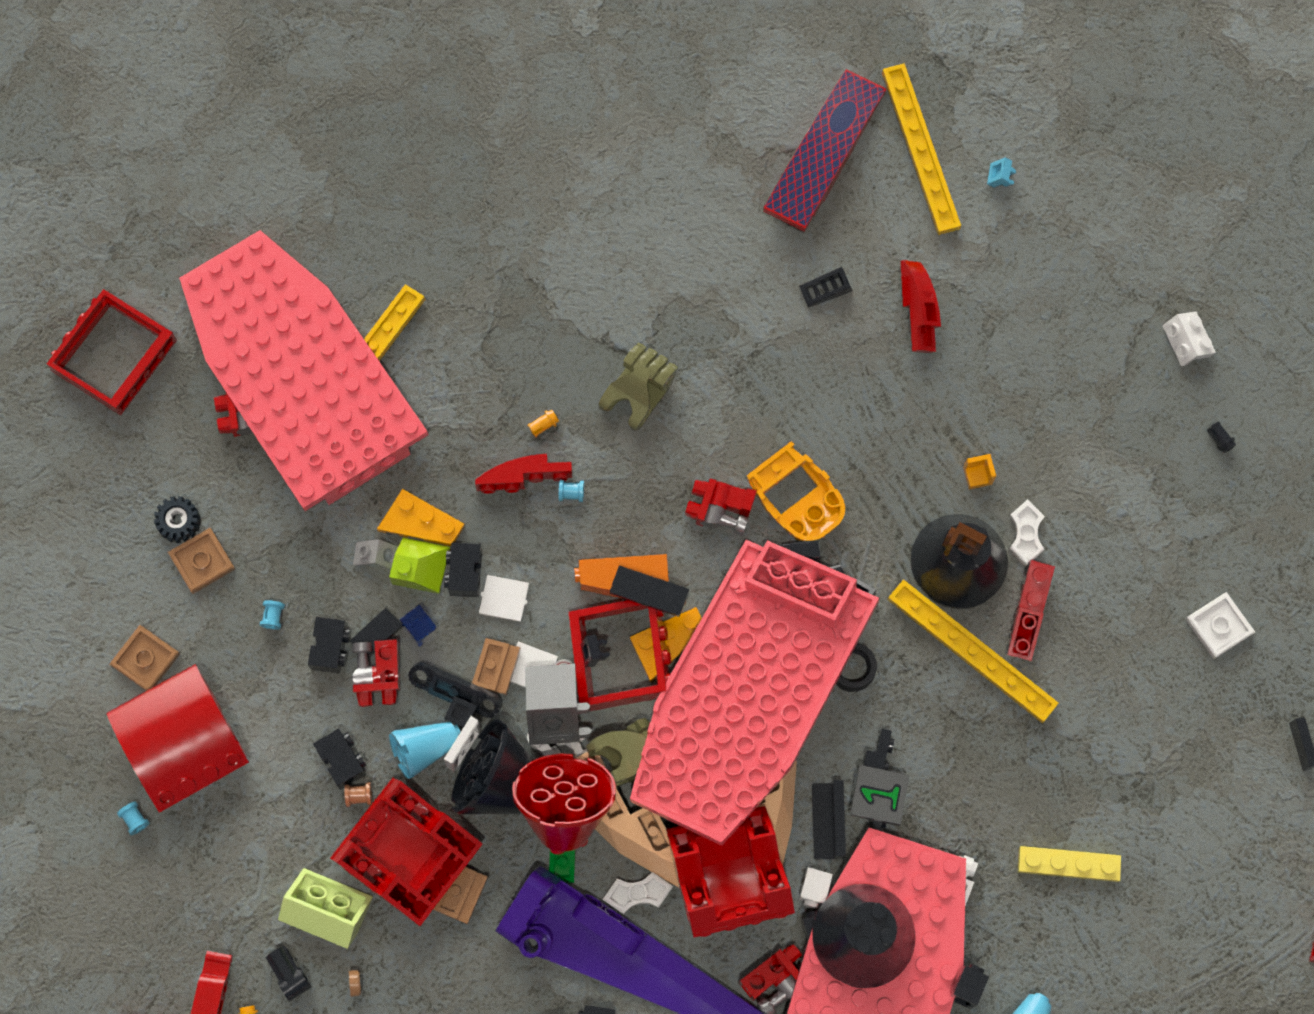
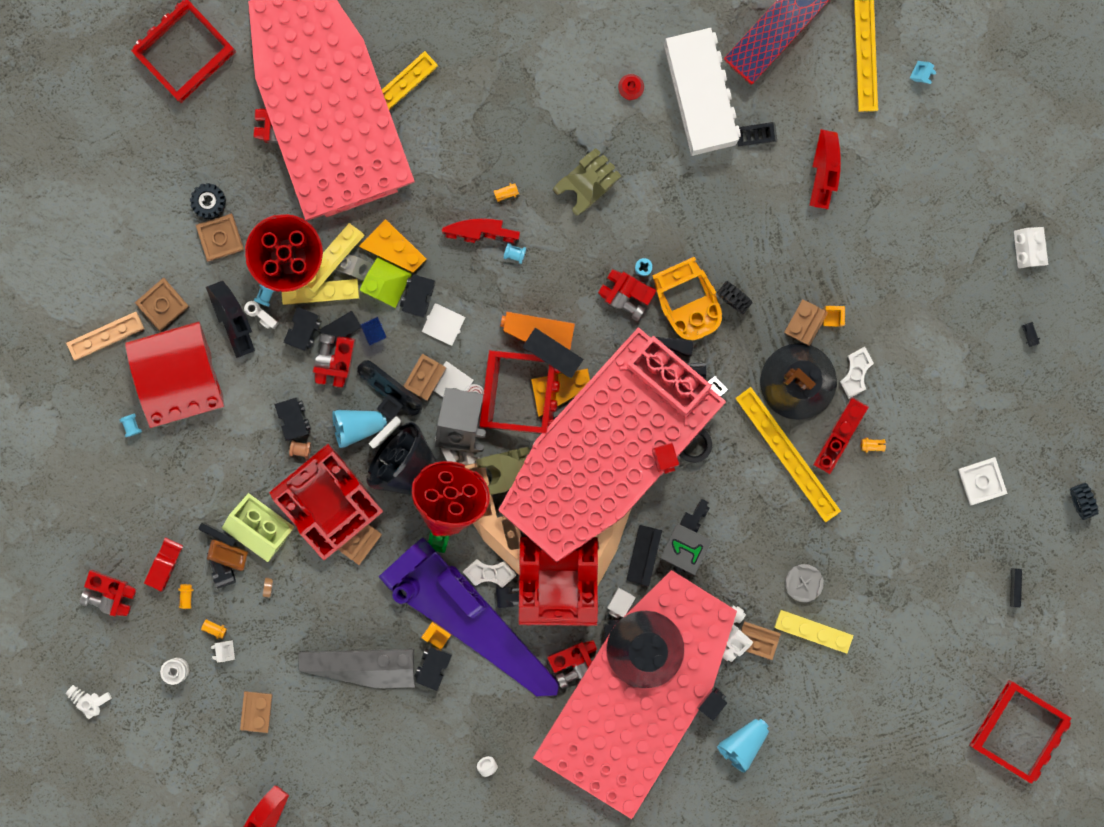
camera: 15 degrees right, 15 degrees up
(79, 715) = (105, 336): none -> light nougat tile
(236, 648) = (233, 317): none -> black slope
(275, 929) = (218, 534): none -> black tile
(280, 643) = (266, 319): none -> white plate
(284, 548) = (283, 253): none -> red cone
(292, 952) = (227, 555): none -> dark orange tile
(341, 596) = (326, 292): none -> light yellow plate
(345, 549) = (335, 254): none -> light yellow plate
(589, 990) = (436, 635): none -> light orange panel
(591, 651) = (497, 387): black tile -> none
(662, 269) = (629, 92): none -> red cone
(669, 916) = (507, 597): none -> black piece
(732, 463) = (644, 261): none -> medium azure bush
(748, 251) = (702, 91): none -> white brick
(824, 680) = (665, 458): none -> red brick
(853, 477) = (734, 297): none -> black tyre
(948, 487) = (806, 322): none -> medium nougat plate
(978, 904) = (736, 645): none -> white plate
(1002, 892) = (764, 640): none -> medium nougat plate
(1039, 805) = (804, 583): none -> light grey tile
(1070, 614) = (873, 445): none -> light orange pin

